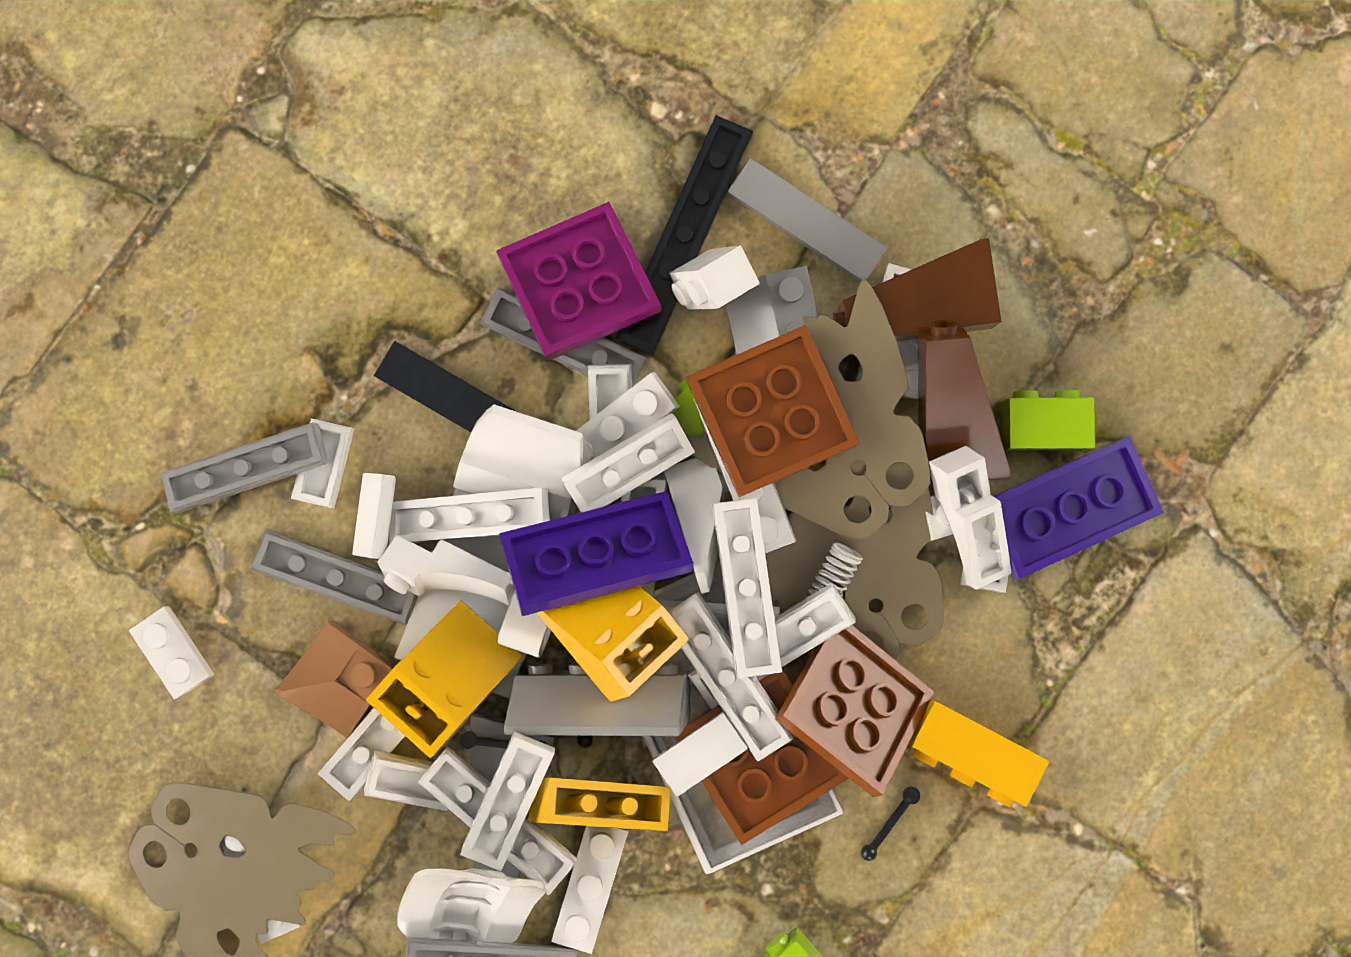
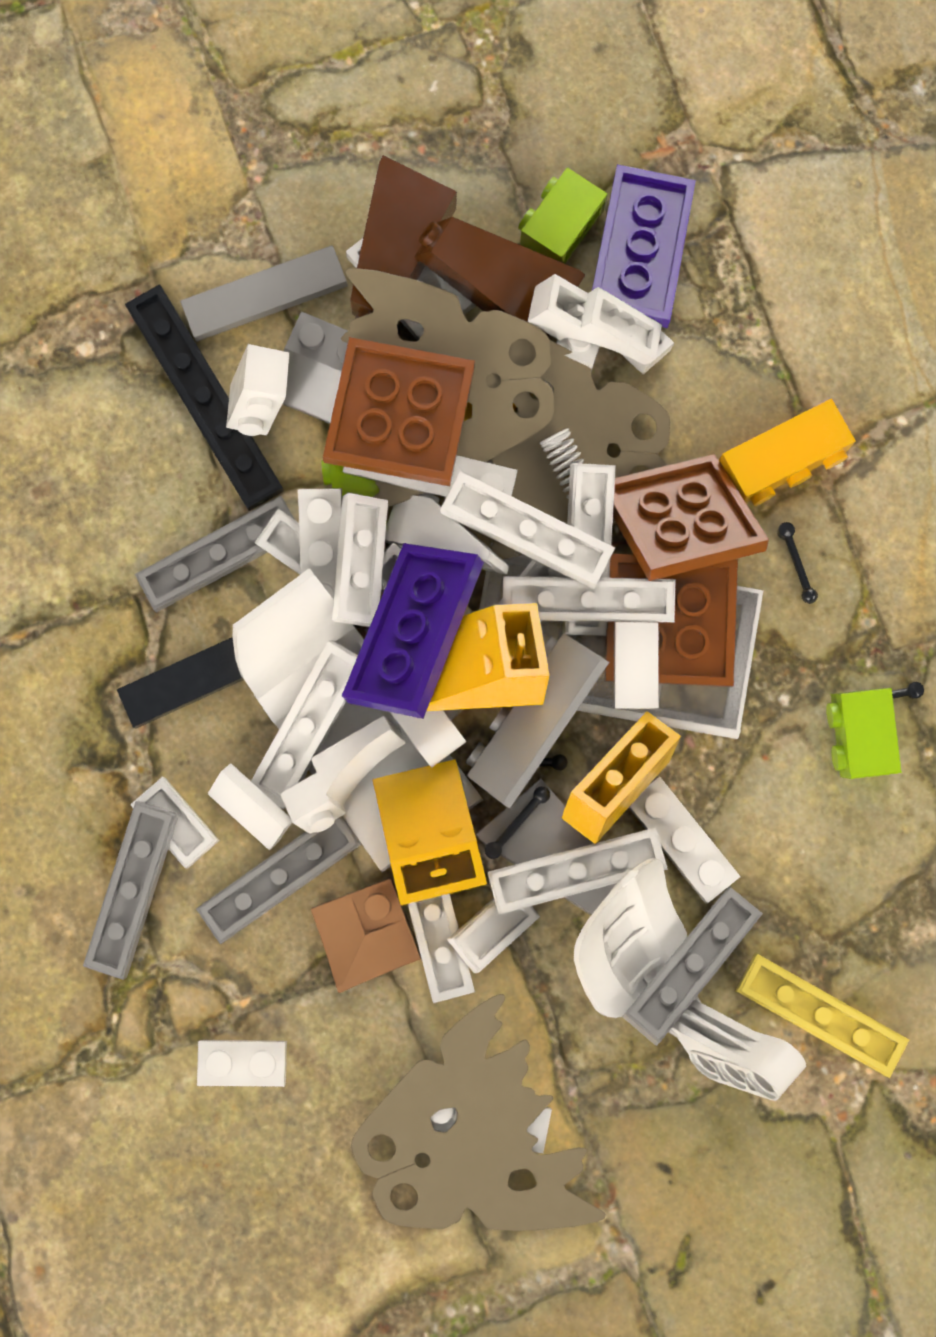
camera: 65 degrees left, 5 degrees down
(507, 801) = (566, 843): white plate -> none
(578, 281) = (179, 503): magenta plate -> none

